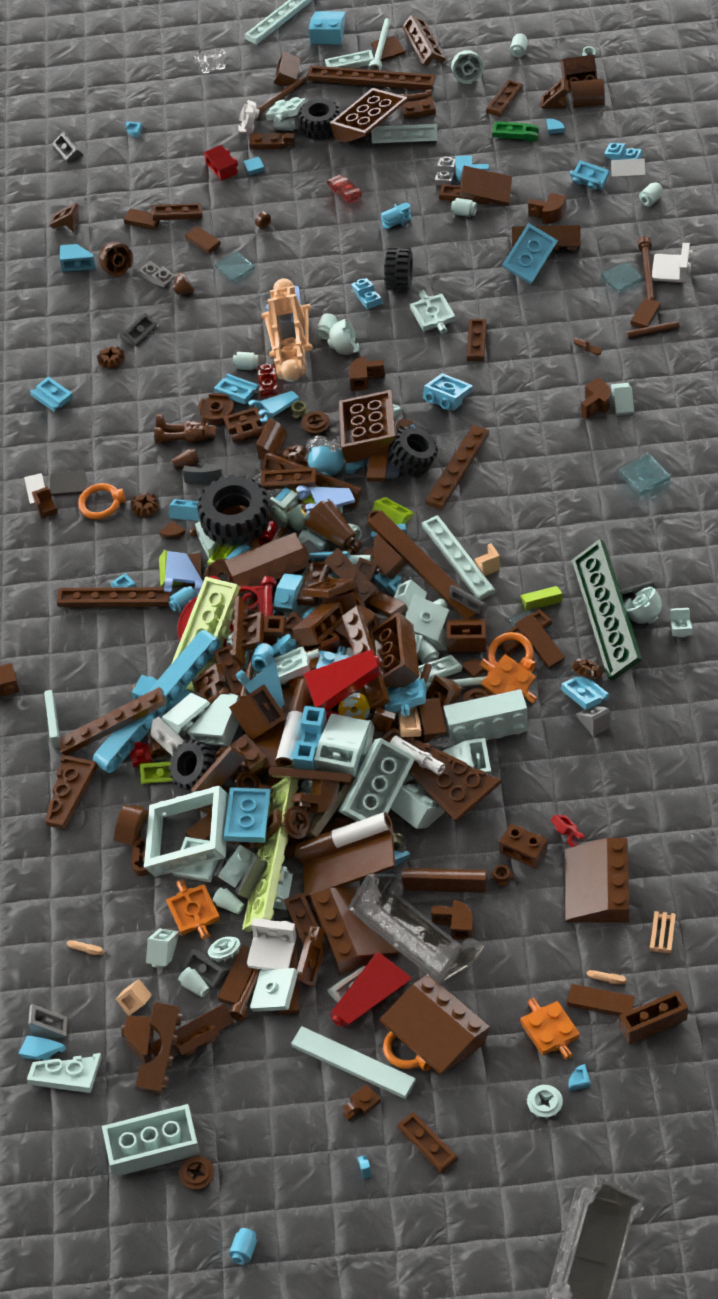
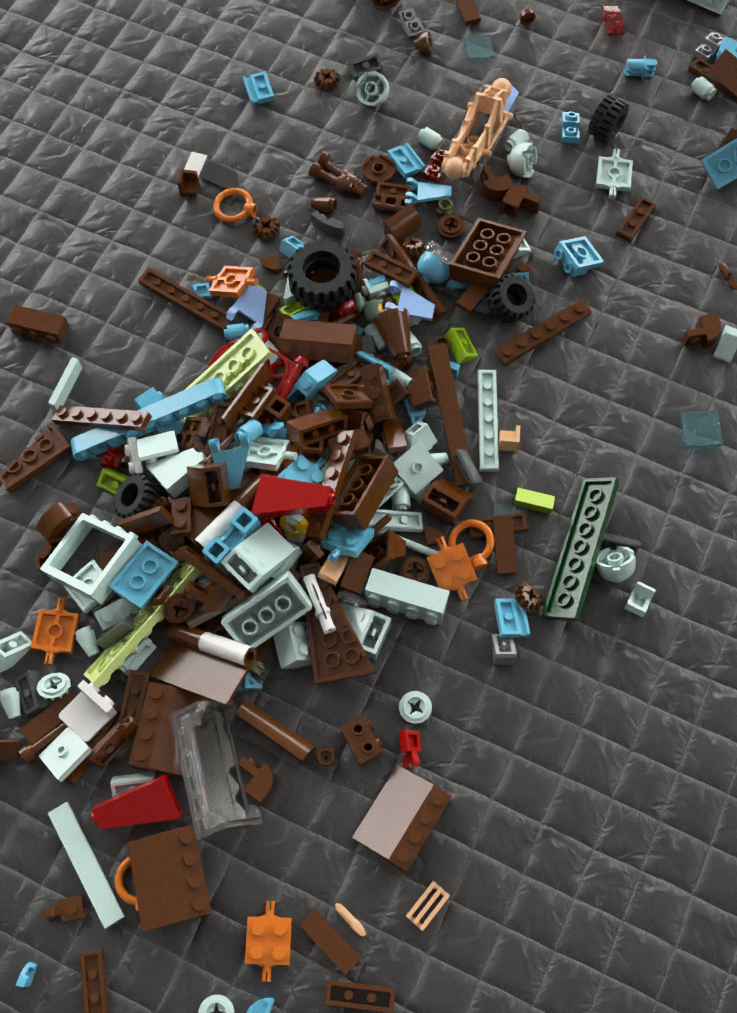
camera: 25 degrees right, 15 degrees up
(148, 560) = (232, 281): none -> orange plate
(164, 343) = (372, 88): none -> light aqua cylinder
(332, 373) = (492, 187): none -> reddish brown brick
(543, 794) = (414, 697): none -> light aqua gear

